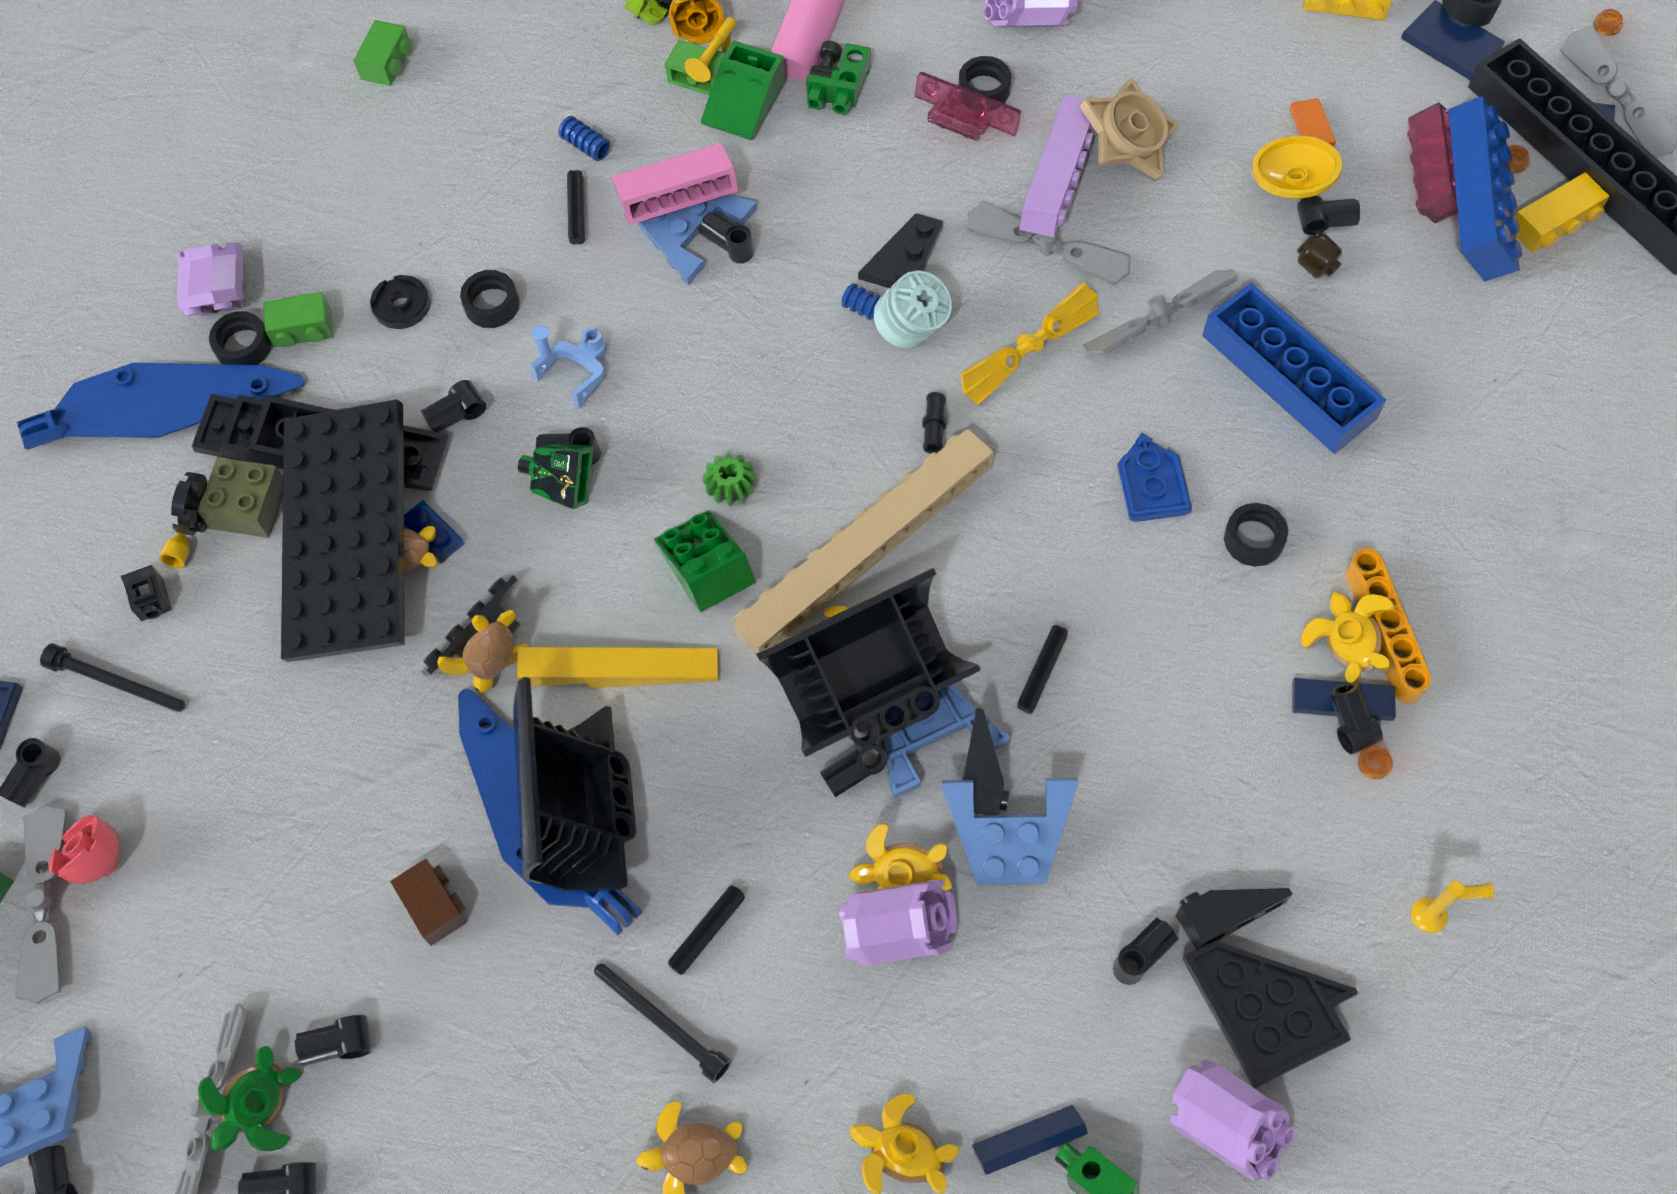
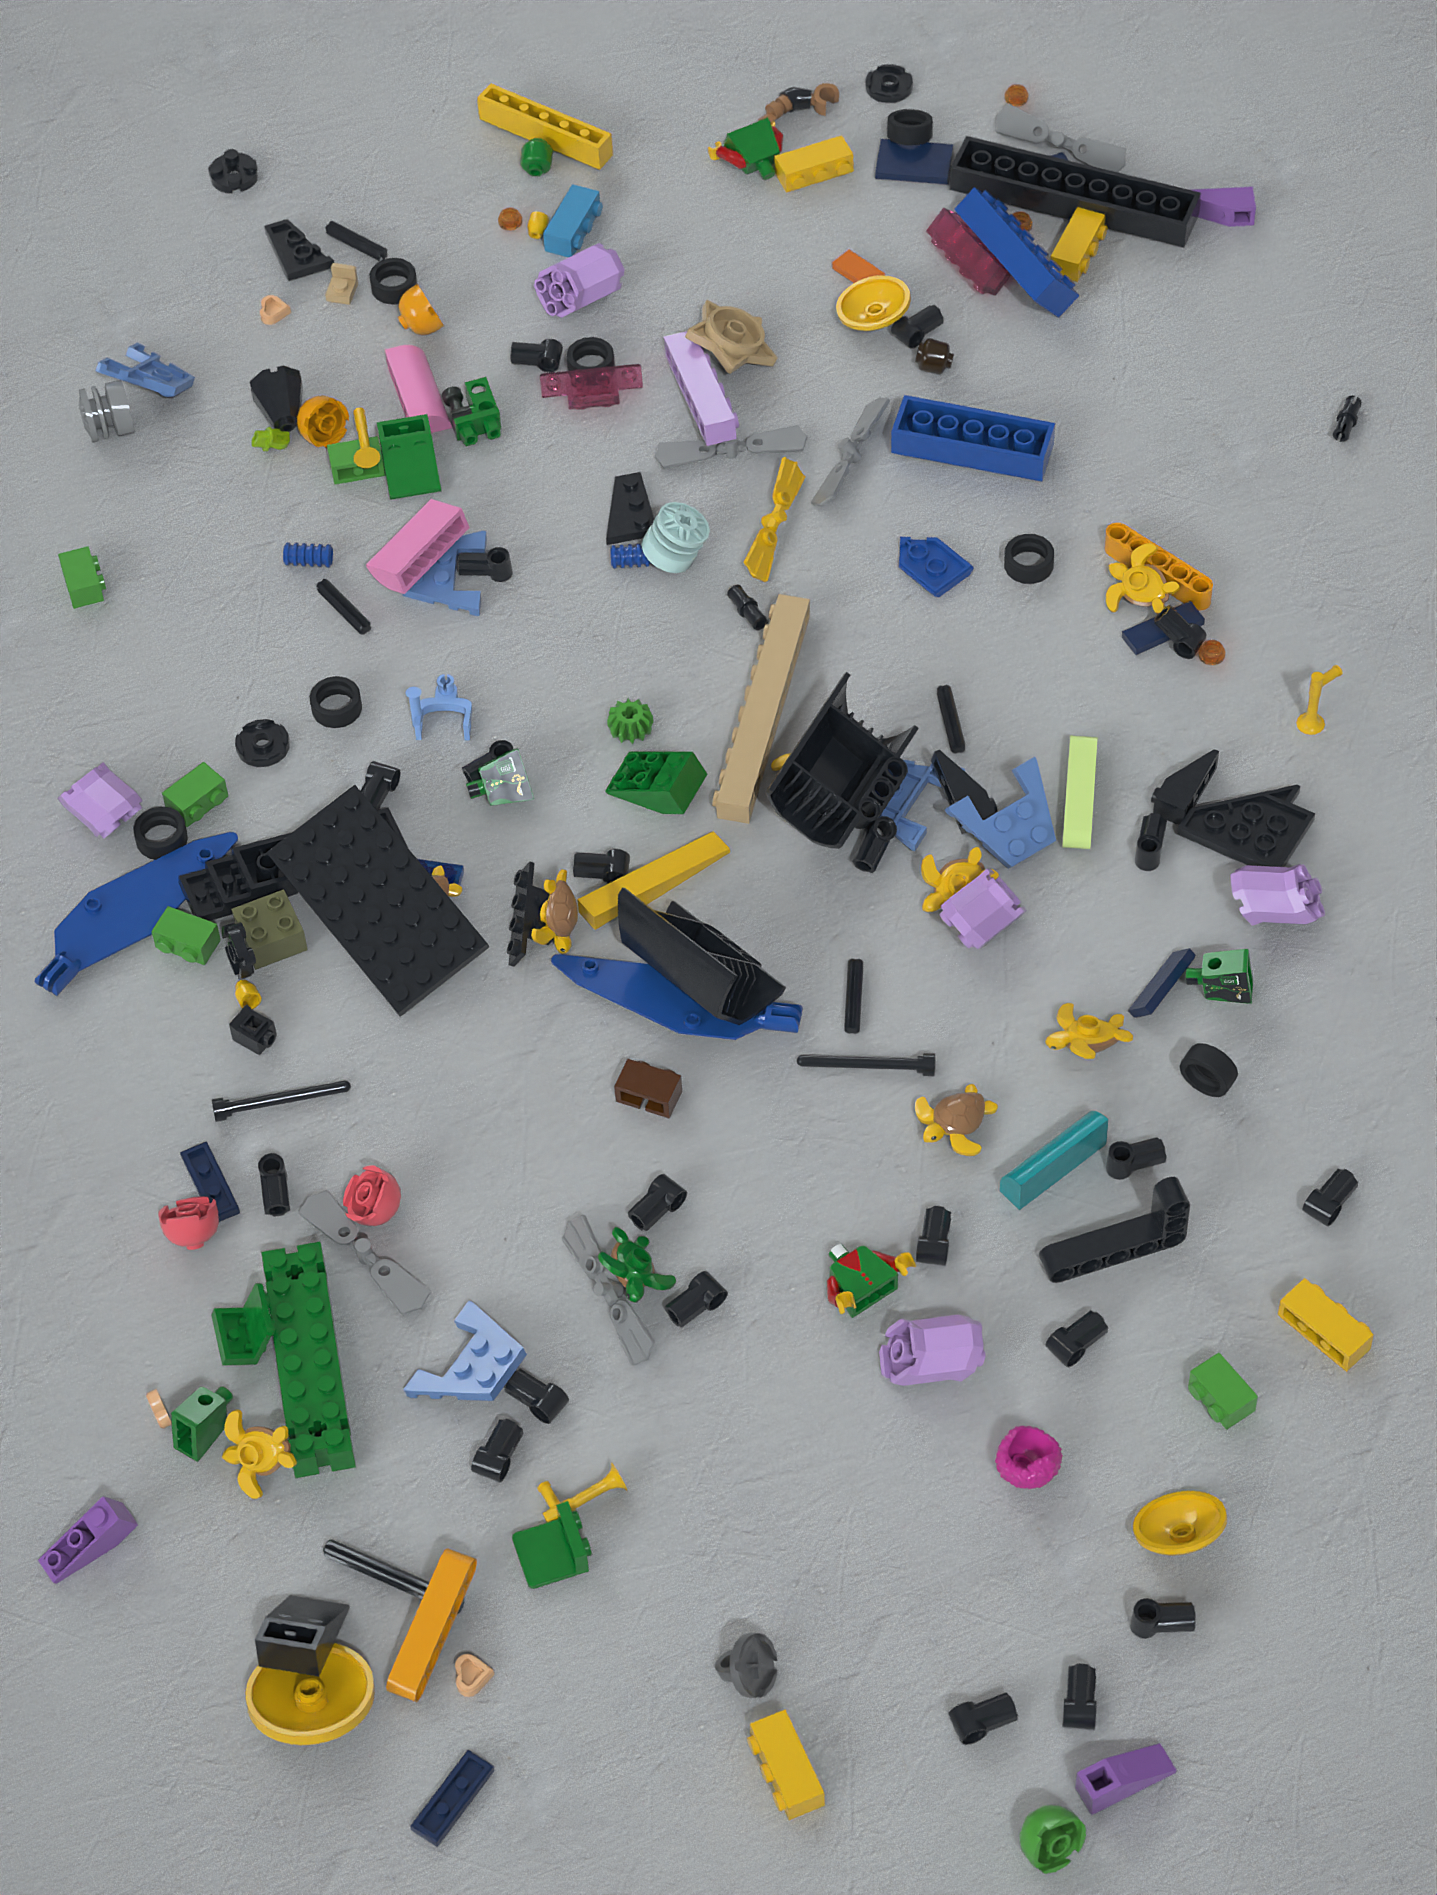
camera: 35 degrees left, 10 degrees down
(171, 455) = (186, 935): none -> bright green brick
(587, 626) = (602, 866): none -> black piece
(945, 55) = (544, 355): none -> black piece
(1111, 842) = (1080, 792): none -> yellowish green beam

